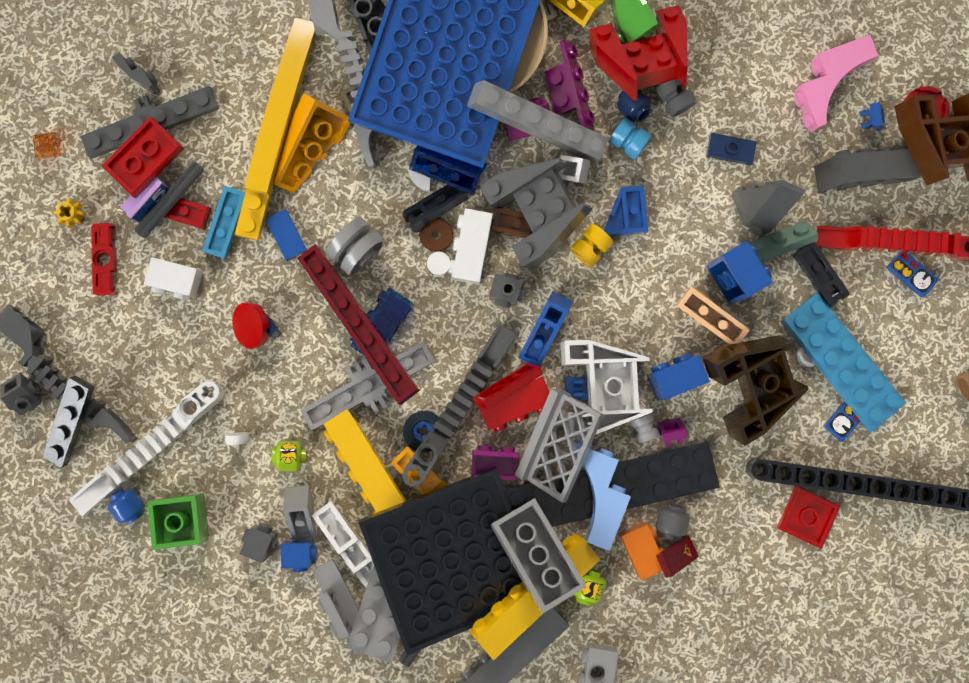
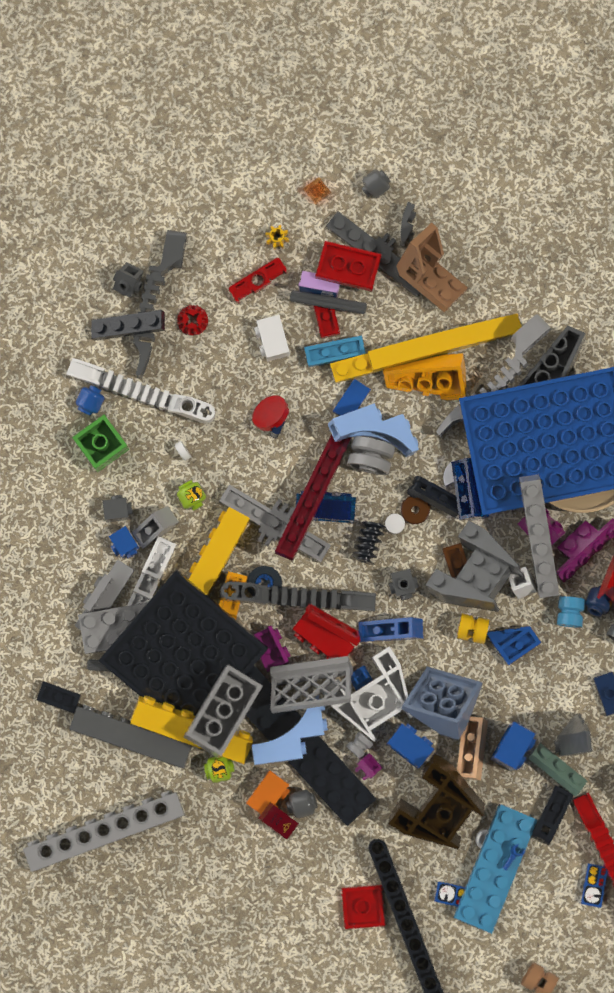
camera: 65 degrees right, 5 degrees down
(74, 80) = (376, 183): none -> dark grey head
(113, 357) = (192, 329): none -> red gear
(196, 83) = (422, 270): none -> medium nougat bracket
(319, 229) = (369, 423): none -> light blue arch
(442, 301) = (368, 541): none -> black piece
(471, 246) = (420, 540): white brick -> none
(651, 317) = (443, 701): none -> sand blue slope
(844, 335) = (514, 854): none -> blue hand

